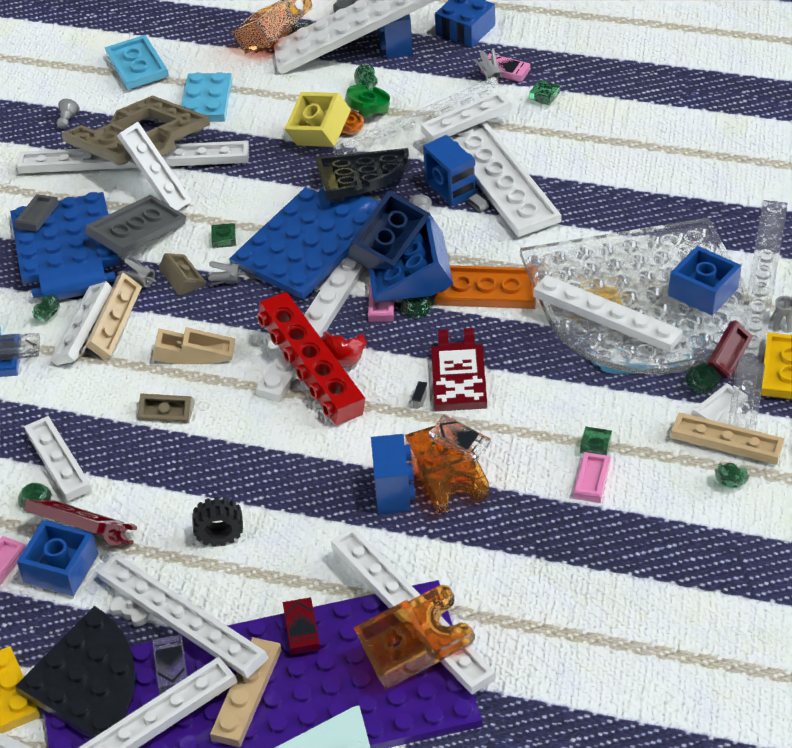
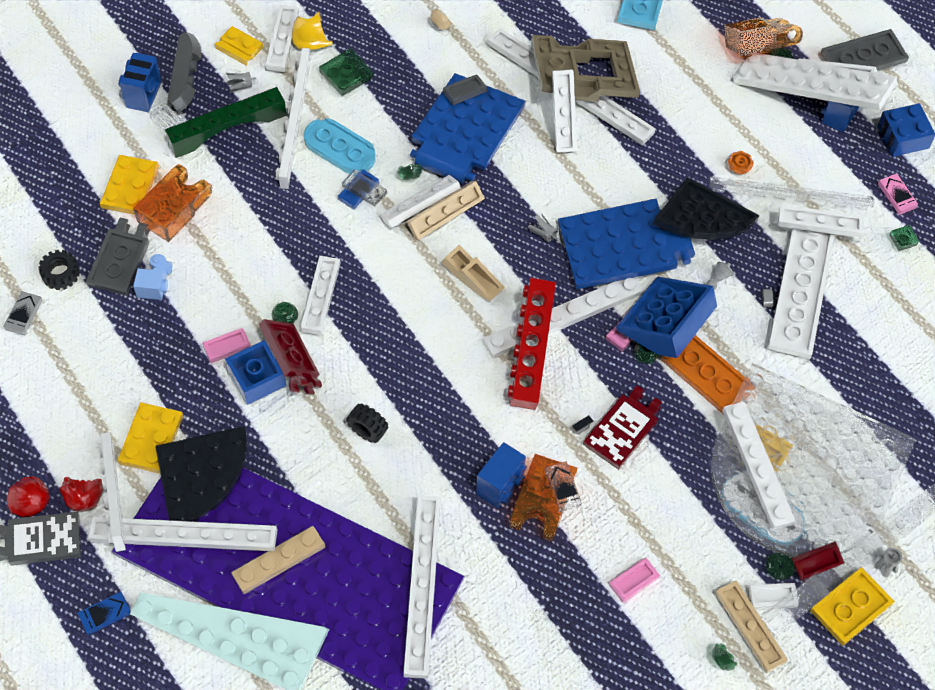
camera: 35 degrees right, 15 degrees up
(67, 109) = (562, 12): light grey piece -> none
(131, 611) = (270, 442): white piece -> none
(135, 225) = (517, 147): dark grey plate -> none
(142, 275) = (492, 191): light grey piece -> none
(165, 407) = (417, 307): dark tan slope -> none
(169, 661) = (253, 503): clear tile -> none
(180, 273) = (519, 206): dark tan slope -> none
(183, 616) = (286, 476): white plate -> none
(208, 94) = (664, 67): medium azure plate -> none
(223, 235) = (572, 195): clear green plate -> none
(301, 626) = (349, 541): dark red tile -> none
(317, 119) = (713, 147): light yellow brick -> none
(345, 351) = (562, 350): red hair -> none
(365, 75) = (786, 130): clear green plate -> none
(366, 100) = (762, 159): green plate -> none
(387, 233) = (669, 283): dark blue slope -> none
(419, 633) = (400, 612): clear orange brick -> none
(449, 170) = (766, 259): blue brick -> none
(489, 68) = (879, 191): light grey piece -> none
(596, 441) = (660, 556): clear green plate -> none
(704, 280) = (848, 494): blue brick -> none

